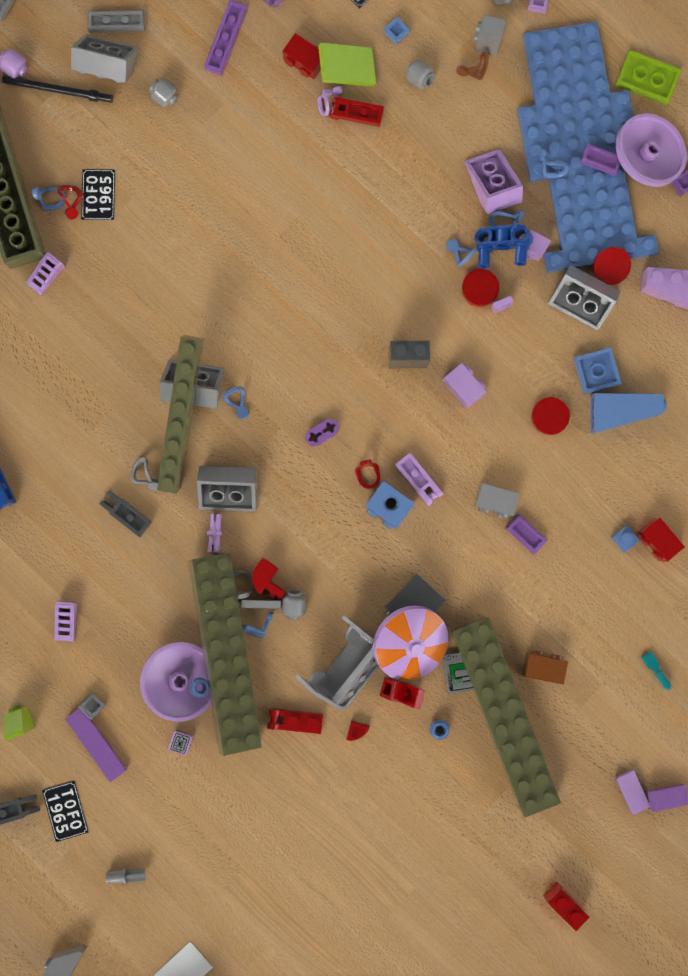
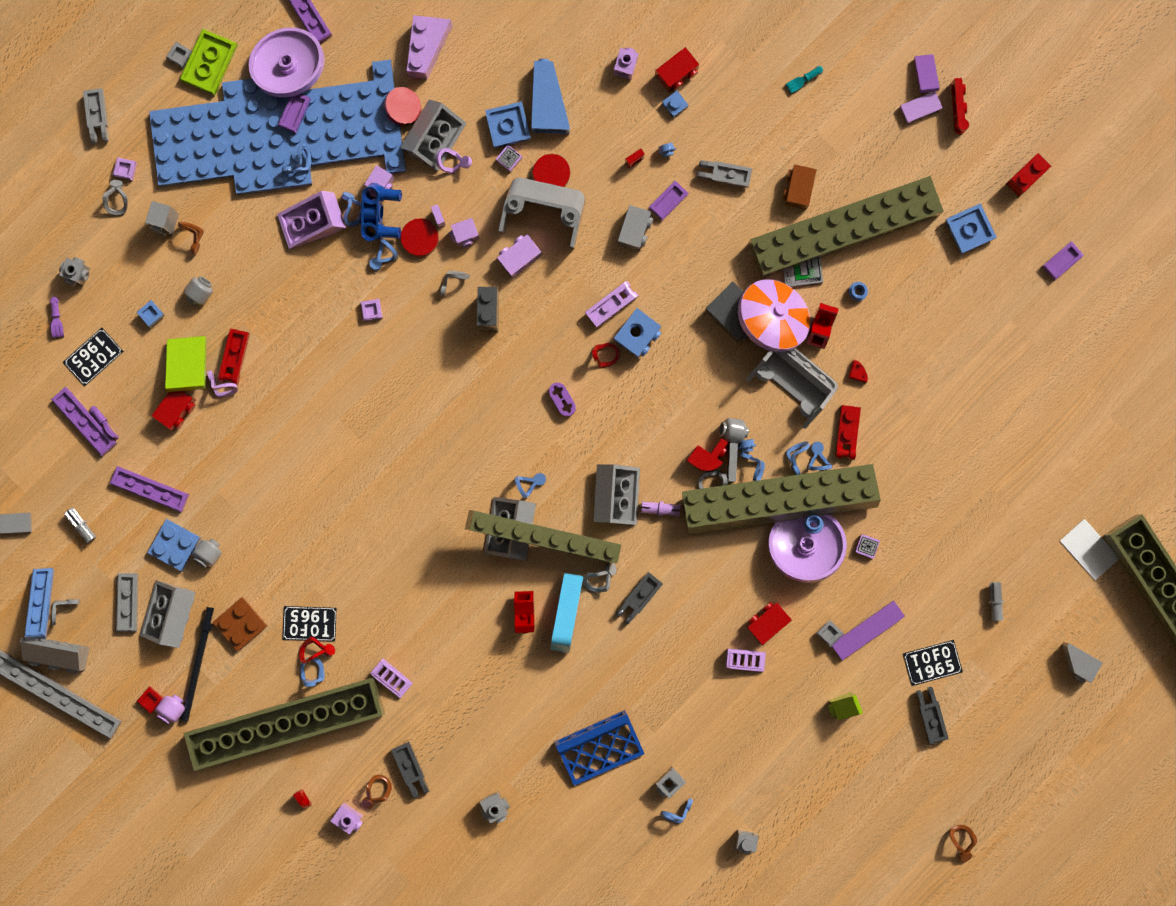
camera: 90 degrees left, 0 degrees up
(23, 45) = (149, 699): none -> red tile
(96, 128) = (240, 624): none -> dark orange plate
(101, 643) = (768, 623): none -> red brick
(108, 400) = (524, 611): none -> red brick
(109, 441) = (566, 613): none -> medium azure beam
(172, 62) = (174, 545): none -> medium blue plate
(267, 664) = (792, 457): none -> medium blue piece
(279, 618) = (747, 445): none -> medium blue plate
(279, 690) = (817, 448): none -> medium blue piece
(406, 243) = (371, 310): none -> lavender tile
(442, 332) = (457, 274): none -> light grey piece
(478, 942) = (1062, 260): none -> medium lavender tile
(486, 331) = (464, 233): none -> lavender brick
(508, 845) = (970, 228): none -> medium blue plate
(522, 432) = (567, 199): none -> light grey windscreen
(555, 592) = (726, 173): none -> light grey hinge
(558, 329) = (465, 162): none -> lavender piece
(563, 373) = (509, 158): none -> tile
(568, 499) = (634, 158): none -> red tile
(578, 531) = (666, 150): none -> medium blue plate
(635, 832) = (958, 91): none -> red plate
(654, 48) = (179, 55): none -> light grey tile
(665, 487) = (626, 63): none -> lavender brick

